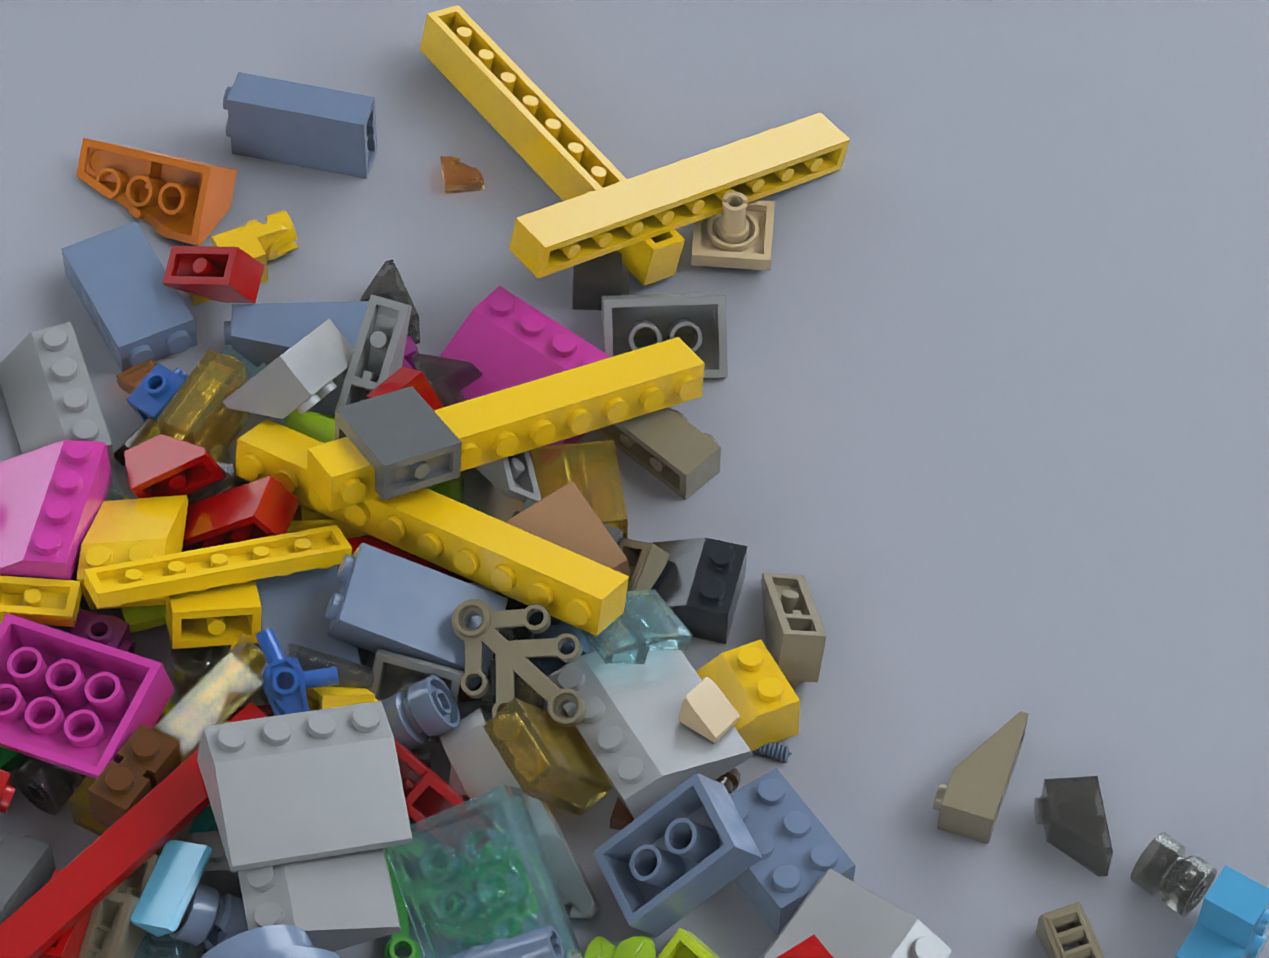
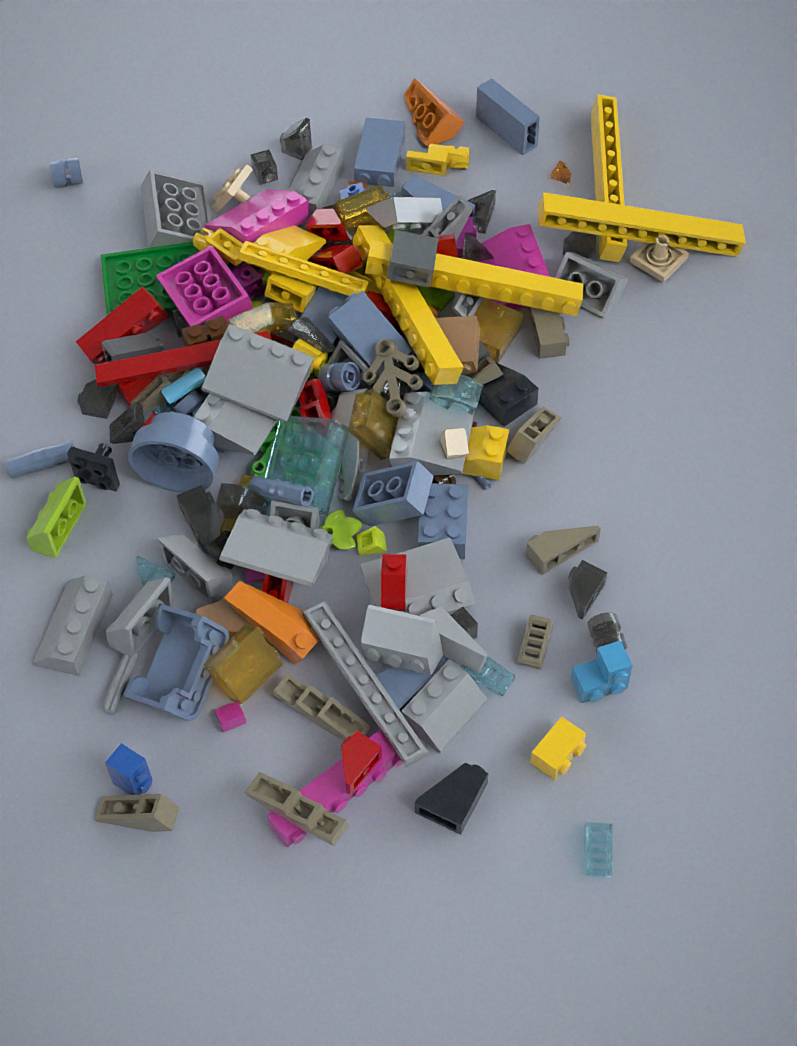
camera: 40 degrees right, 5 degrees up
(214, 273) = (414, 157): red slope -> none
(286, 681) = (287, 329): blue piece -> none

